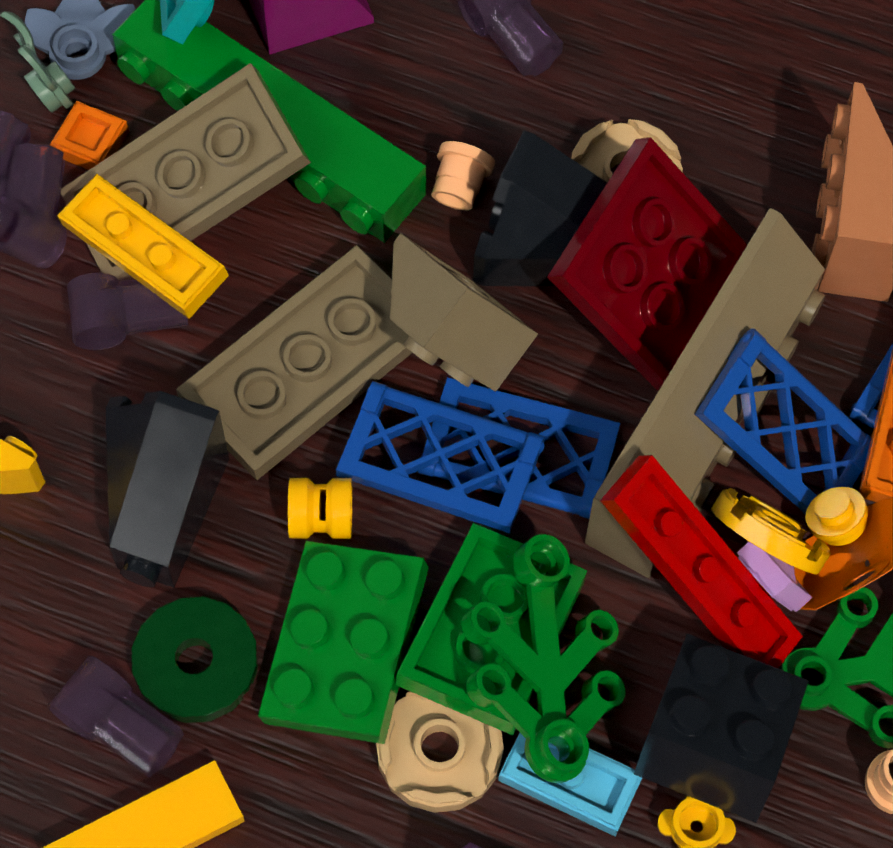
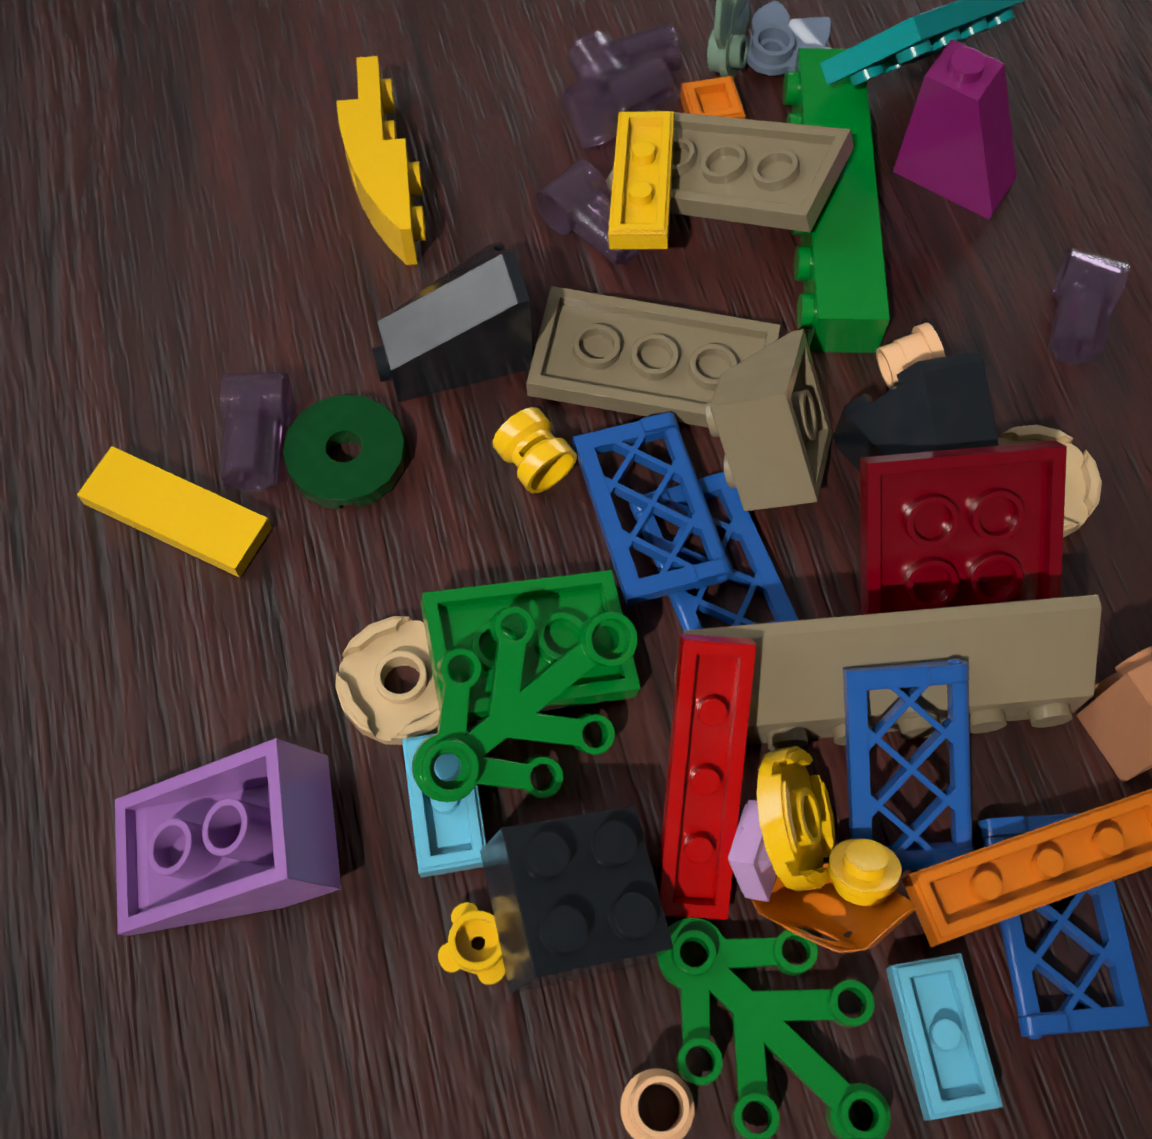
camera: 55 degrees right, 0 degrees up
(344, 642) = (436, 540): green plate -> none

